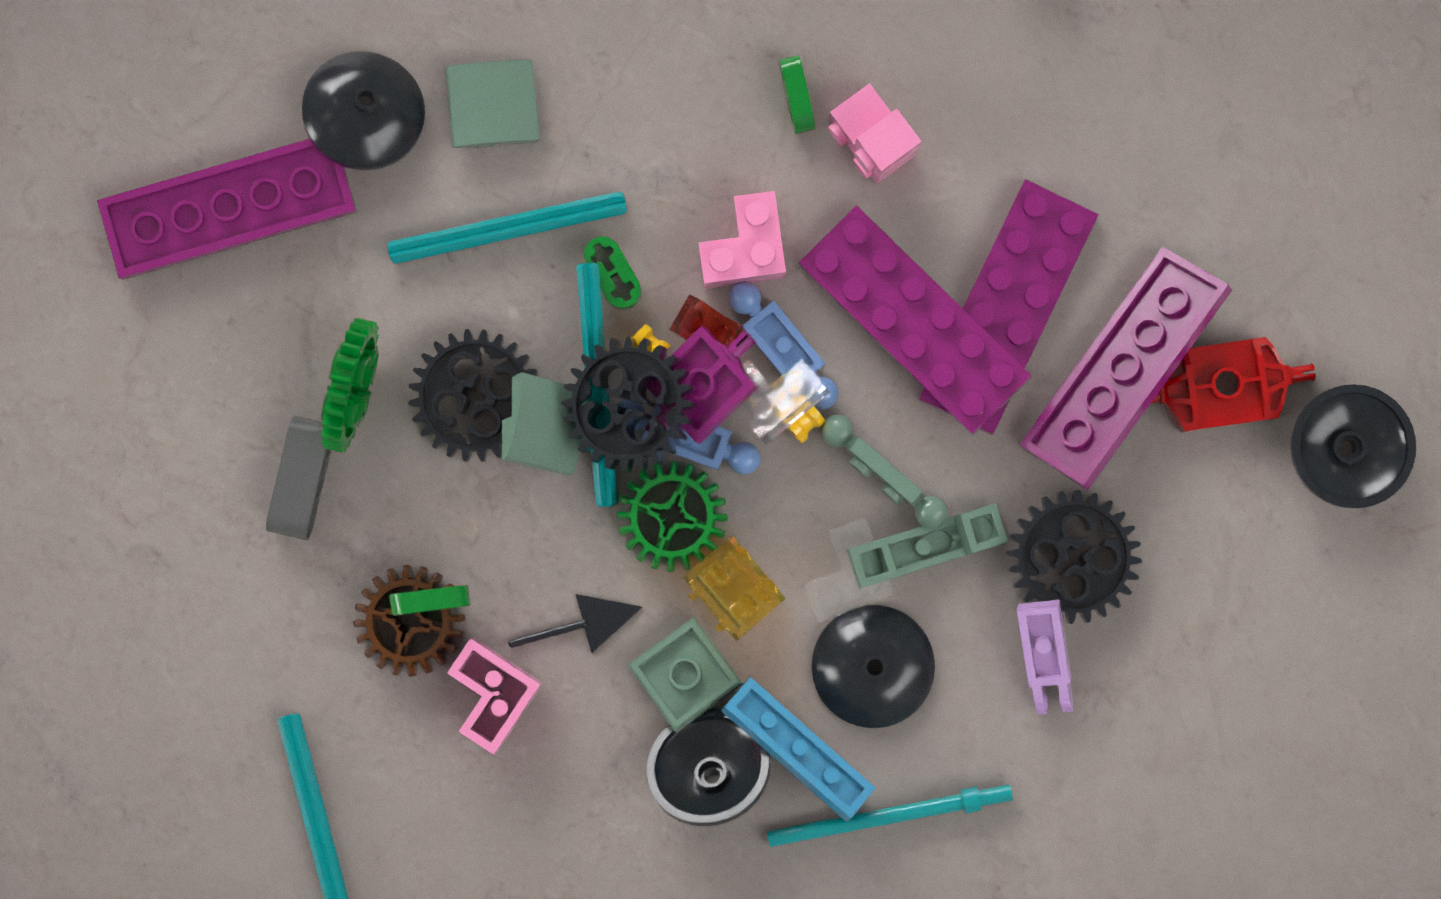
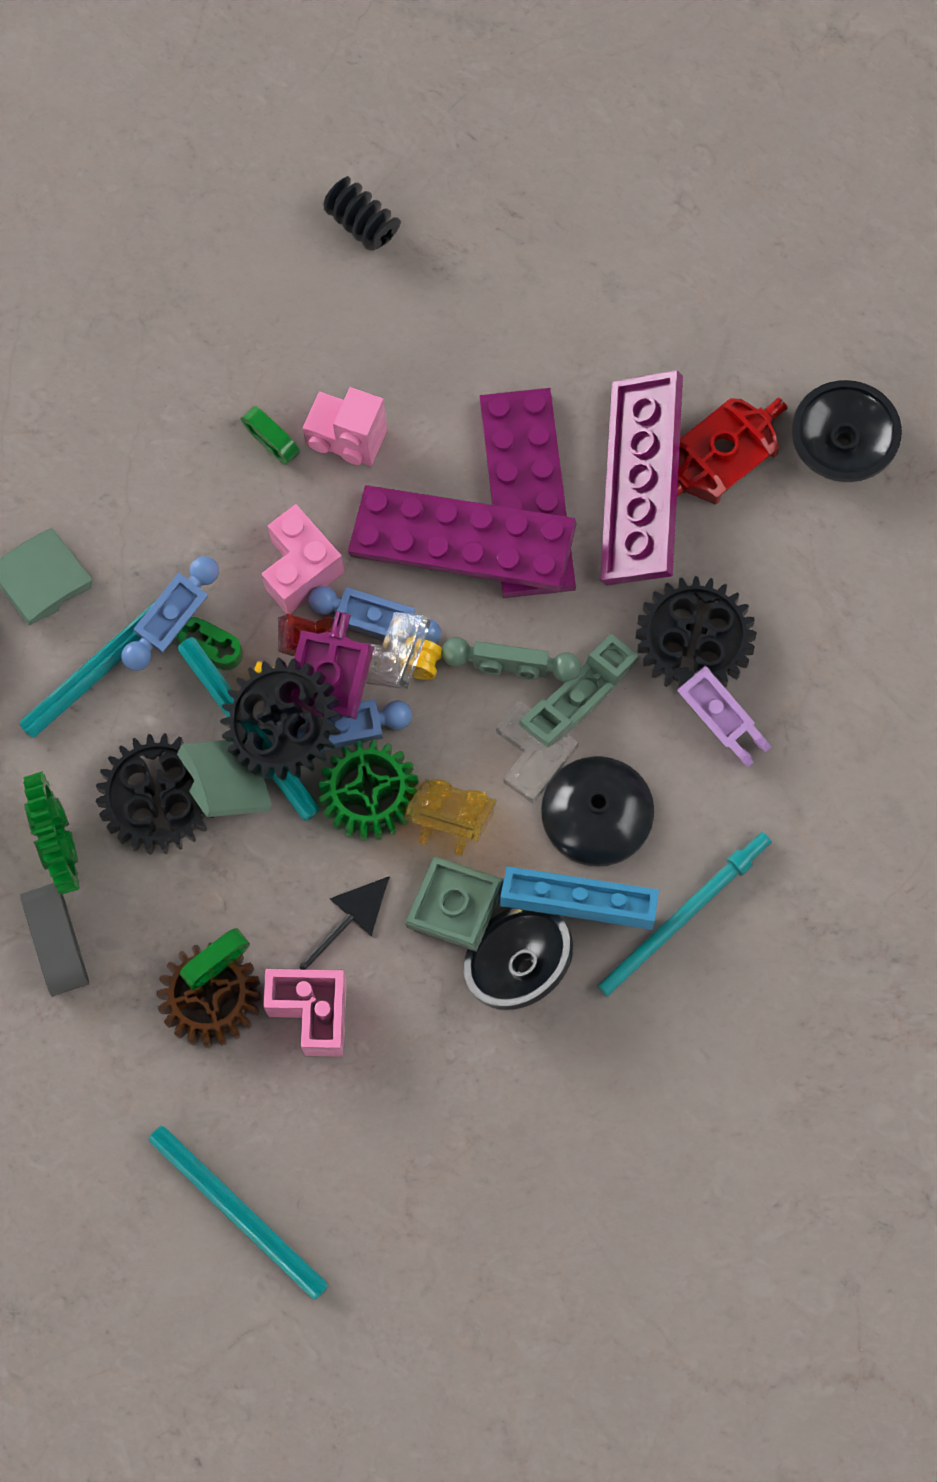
camera: 30 degrees left, 15 degrees down
(590, 225) = (170, 613): none -> medium blue plate

